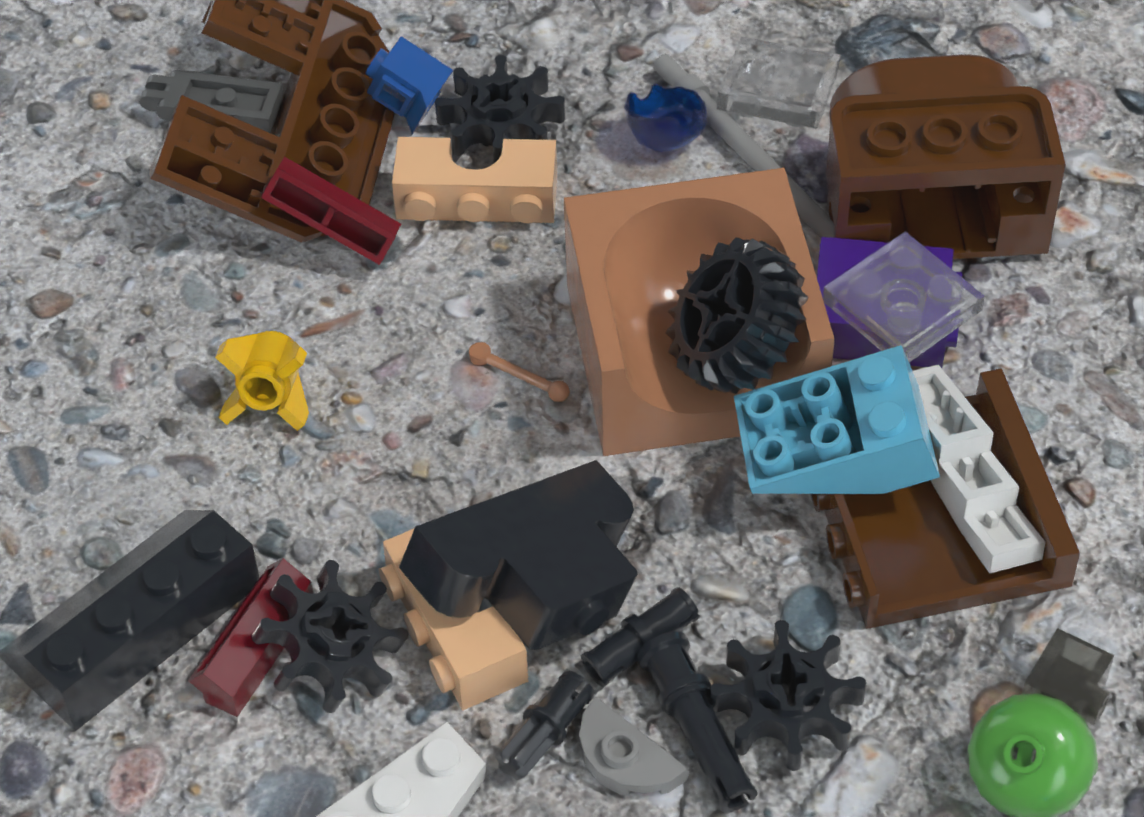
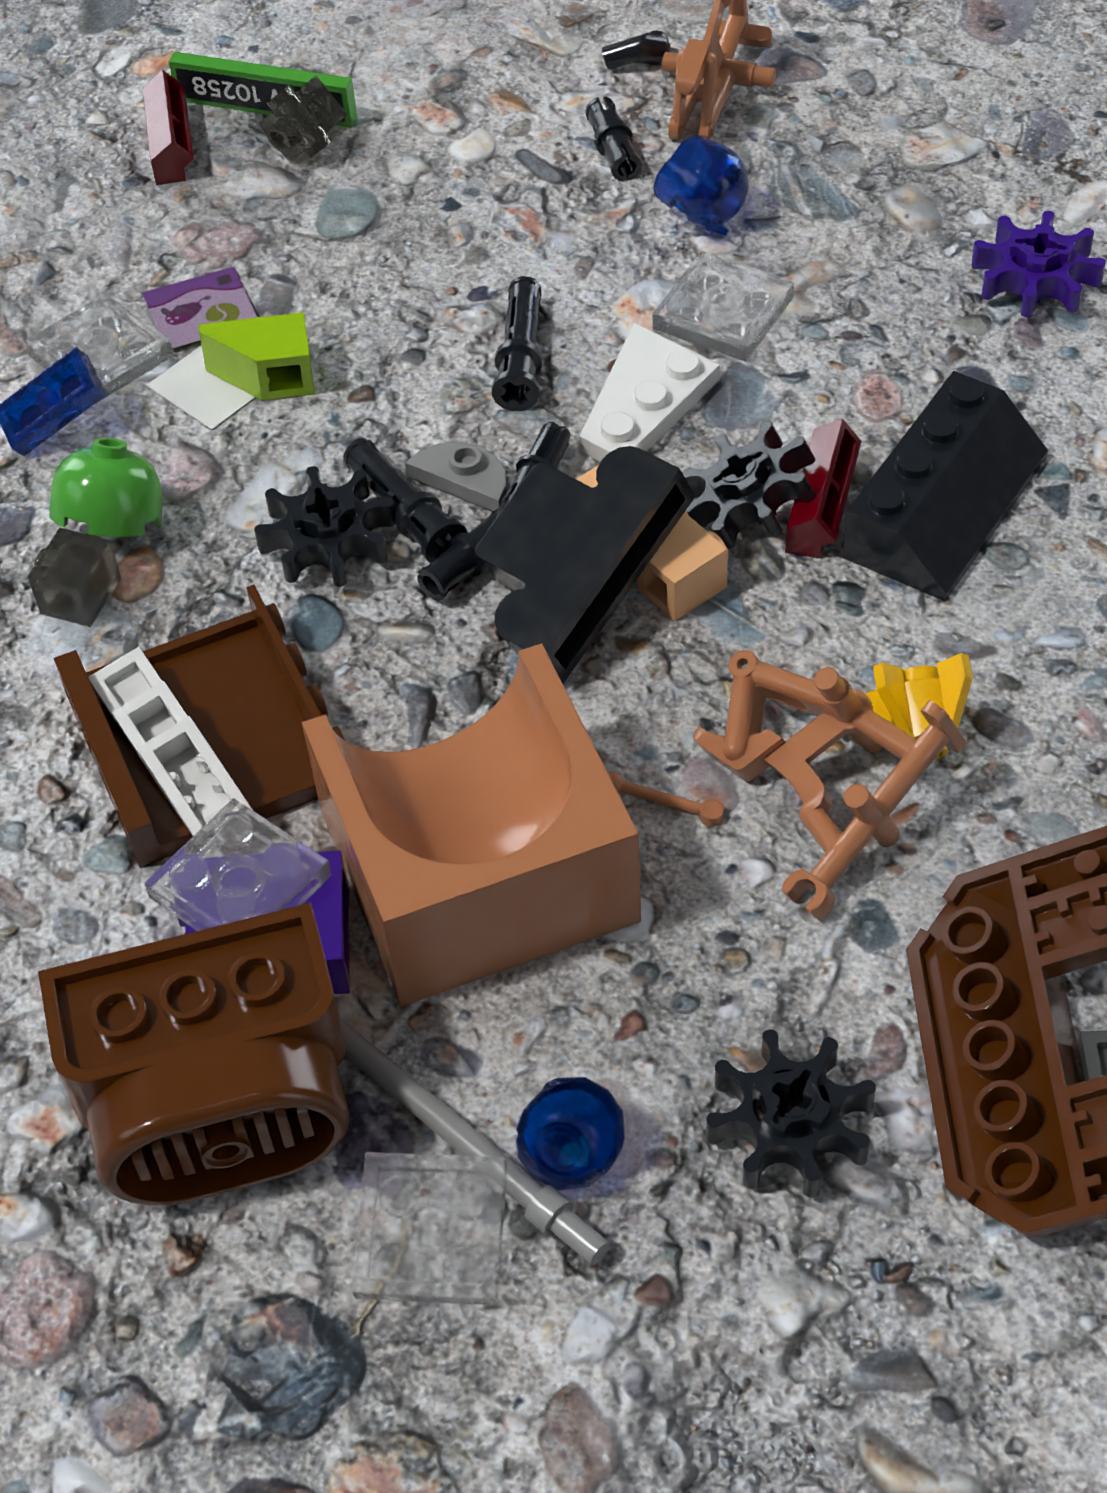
camera: 170 degrees right, 0 degrees up
(331, 210) = (937, 890): dark red piece -> none
(355, 356) = (839, 712): none -> nougat piece
(407, 80) = (925, 1115): blue window -> none
(513, 189) = (834, 981): light nougat arch -> none
(736, 315) = (414, 755): black gear -> none
(838, 430) = (263, 687): medium azure slope -> none

